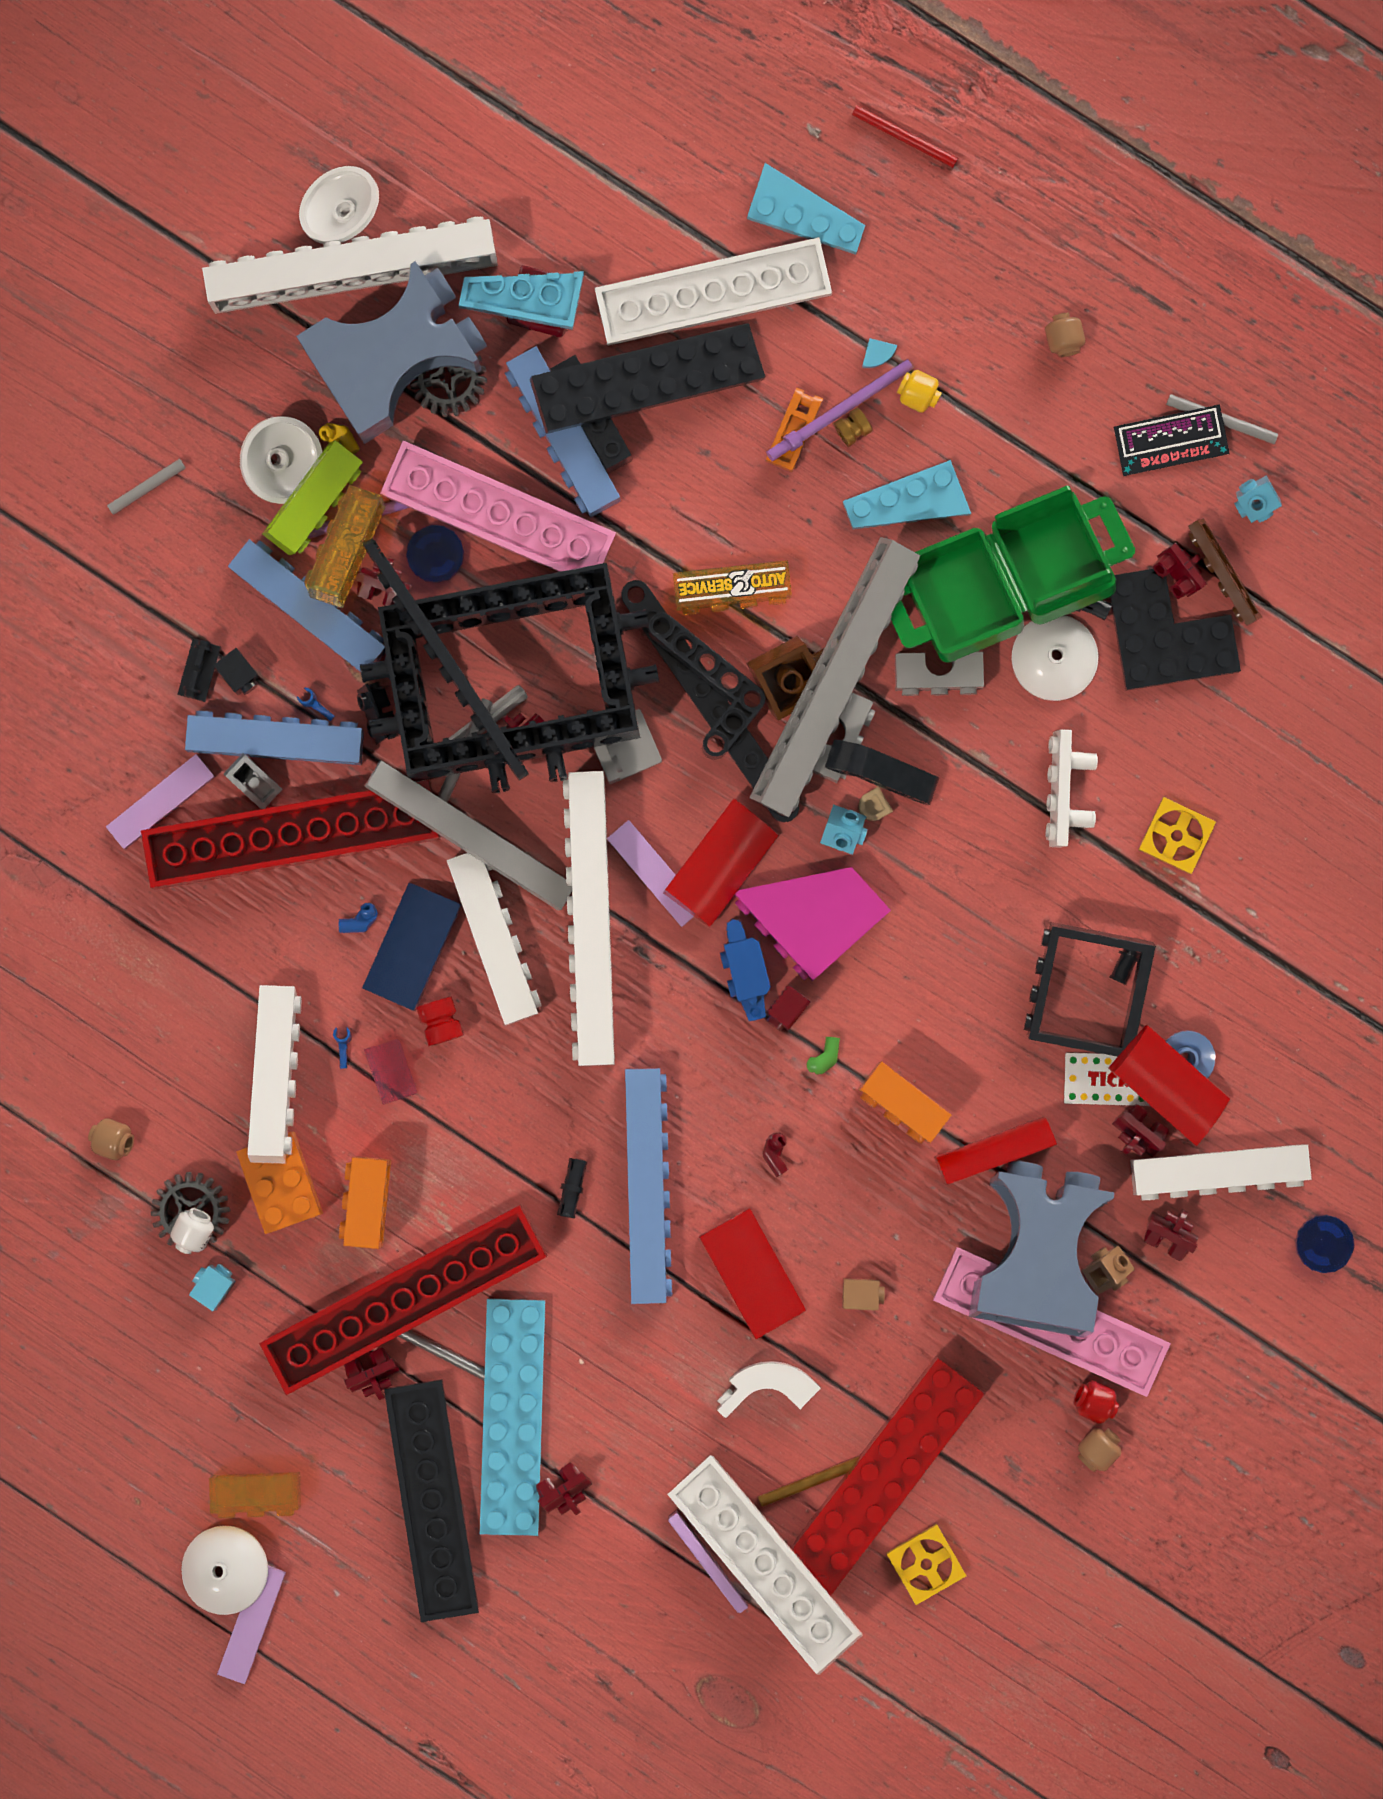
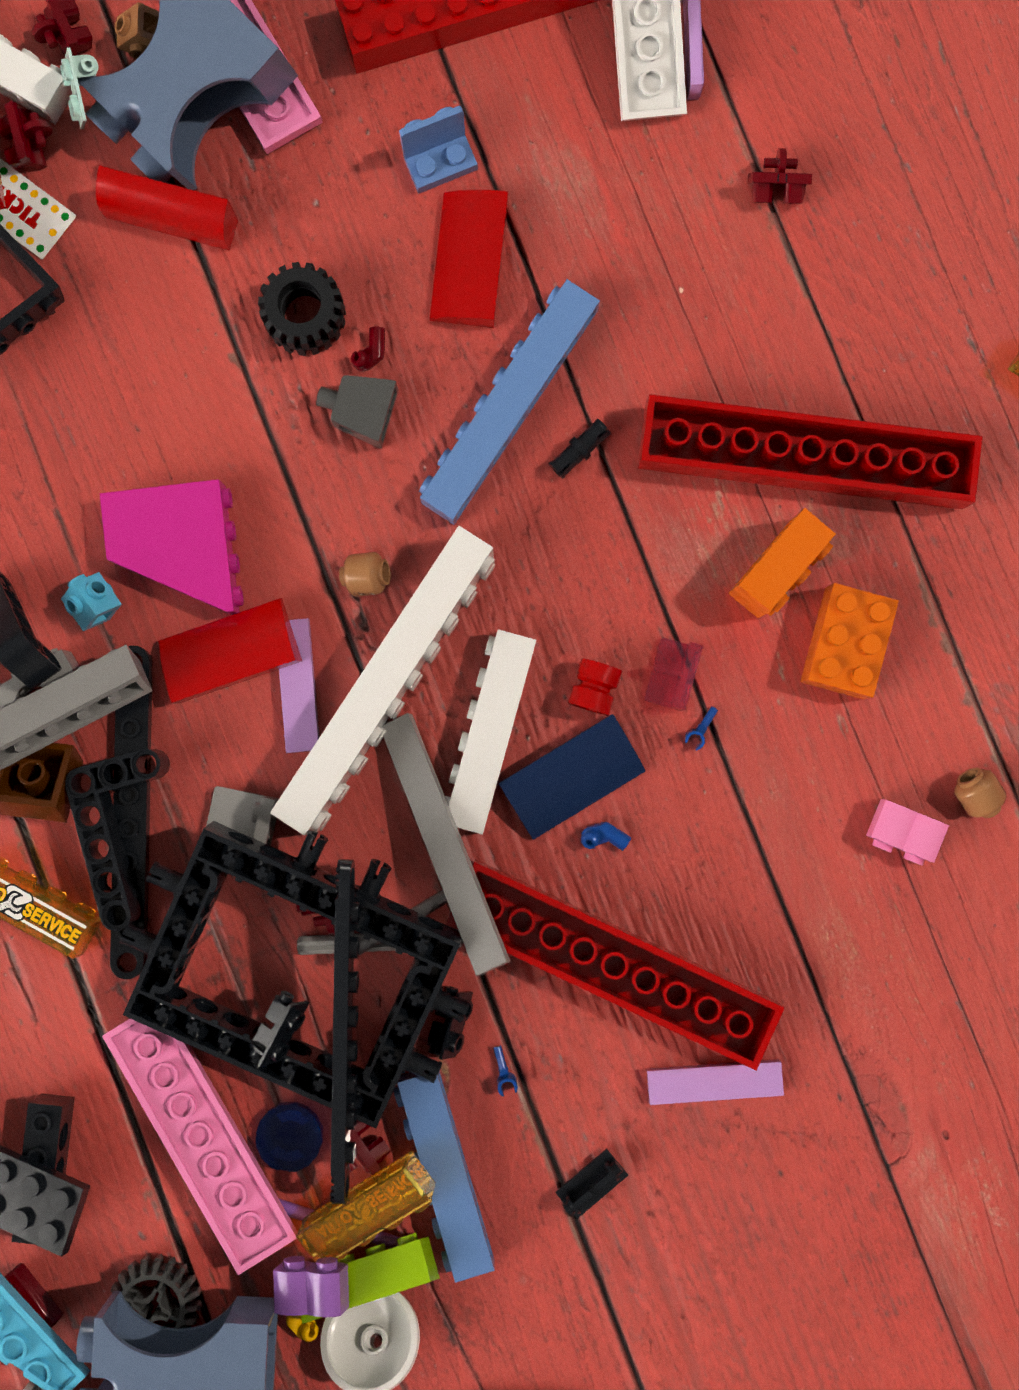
camera: 145 degrees left, 0 degrees up
(144, 1075) = (907, 831): none -> bright pink brick
(181, 1200) = (950, 686): dark grey gear -> none
(192, 1231) = (968, 650): white head -> none
(212, 1285) = (977, 590): medium azure brick -> none
(237, 672) = (556, 1156): black brick -> none
(252, 781) = (614, 1041): dark grey slope -> none
(273, 1074) = (789, 744): white brick -> none
(274, 739) = (565, 1066): medium blue brick -> none
(346, 471) = (311, 1287): none -> medium lavender brick
(383, 1368) = (898, 412): dark red hips -> none
(431, 1500) = (906, 257): black plate -> none
(444, 1353) = (797, 375): flat silver bar -> none
(489, 617) = (271, 1042): none -> black hinge
(512, 1417) = (779, 282): medium azure plate -> none
(568, 446) = (86, 1157): medium blue brick -> none
(662, 987) = (365, 574): none -> medium nougat head
(747, 971) = (275, 535): blue hinge -> none
(752, 1106) = (361, 407): none -> dark grey torso
(768, 1375) = (520, 154): white arch -> none
(787, 1009) = (261, 469): dark red brick -> none
(806, 1483) = (551, 41): pearl gold bar -> none
(825, 1060) = (262, 402): bright green arm -> none
(827, 1333) = (437, 149): none -> medium blue bracket
(862, 1294) = (382, 168): medium nougat brick -> none
(869, 1142) = (295, 284): none -> black tyre
(874, 805) = (48, 606): tan tile -> none
(903, 1103) = (216, 306): orange brick -> none
(1120, 1200) = (72, 69): none -> light aqua hinge

